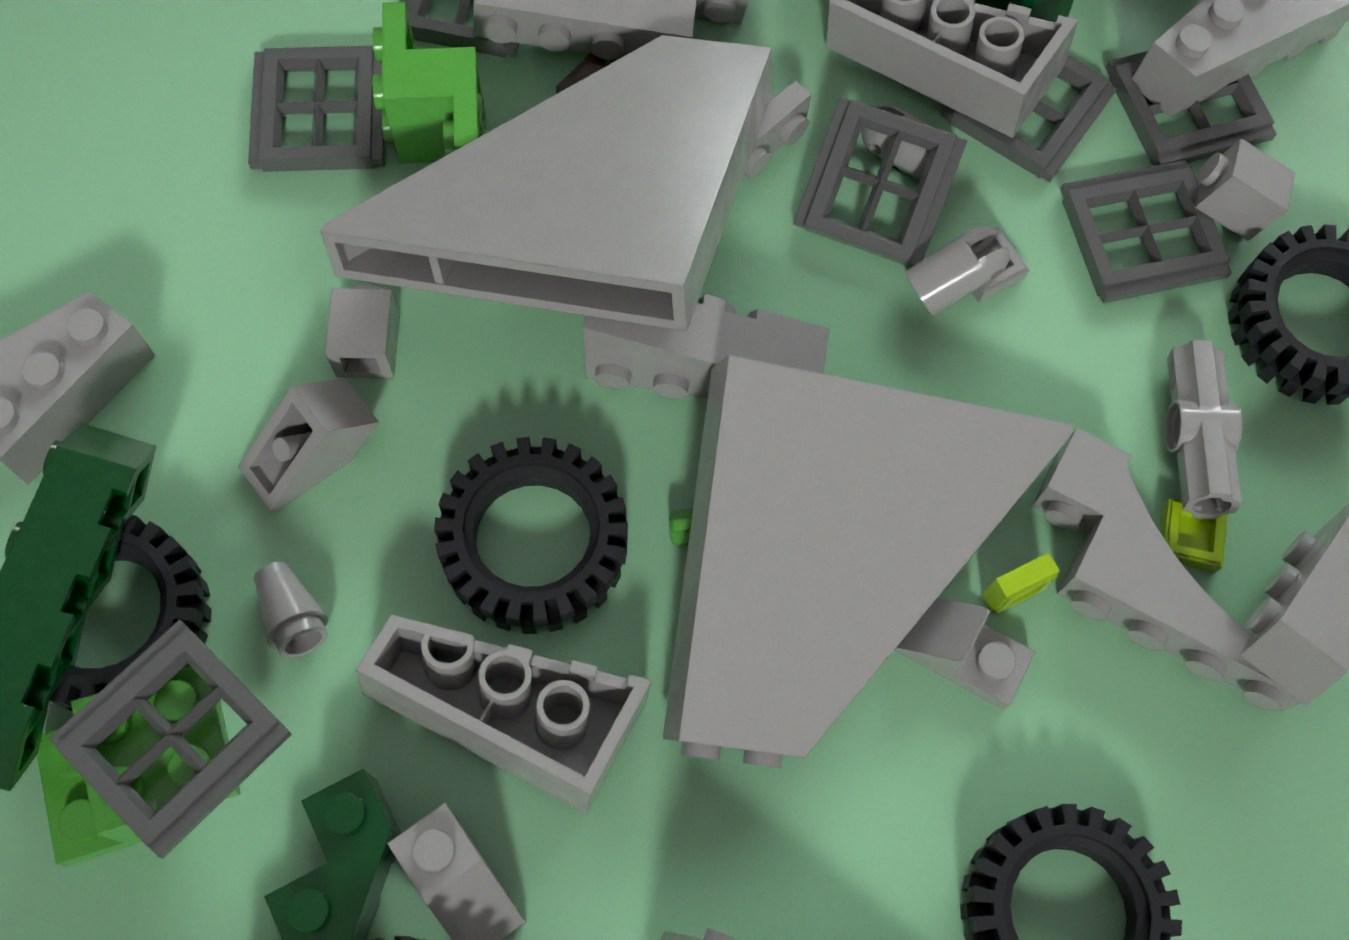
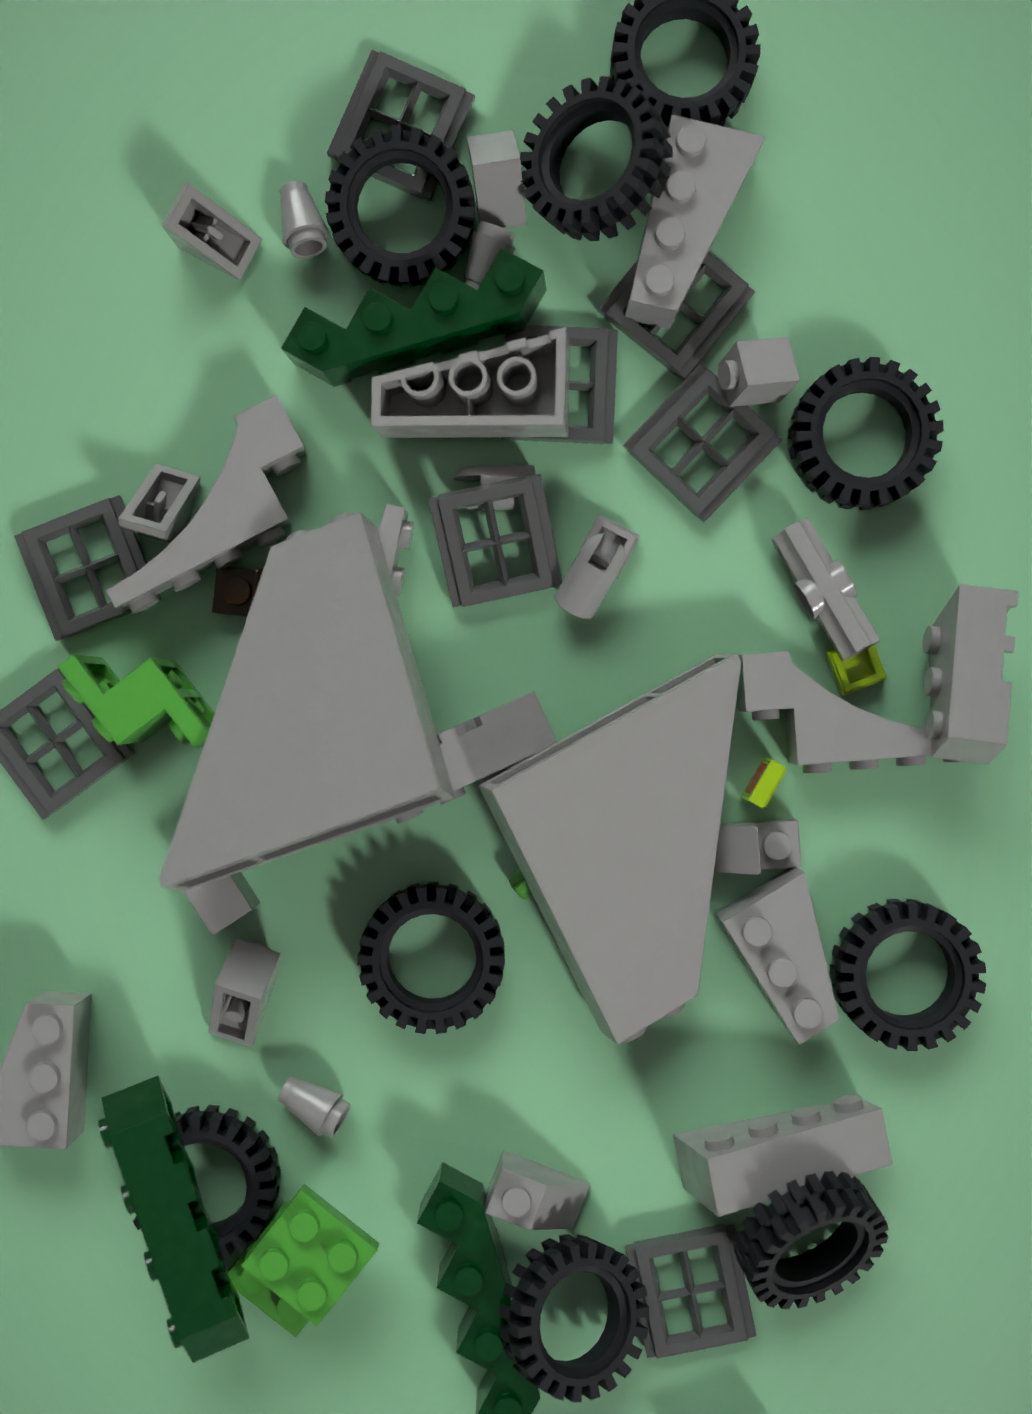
camera: 30 degrees left, 20 degrees up
(212, 780) = (277, 1244): dark grey piece -> none
(513, 708) = (502, 1079): light grey wedge -> none
(933, 784) = (784, 951): none -> light grey wedge

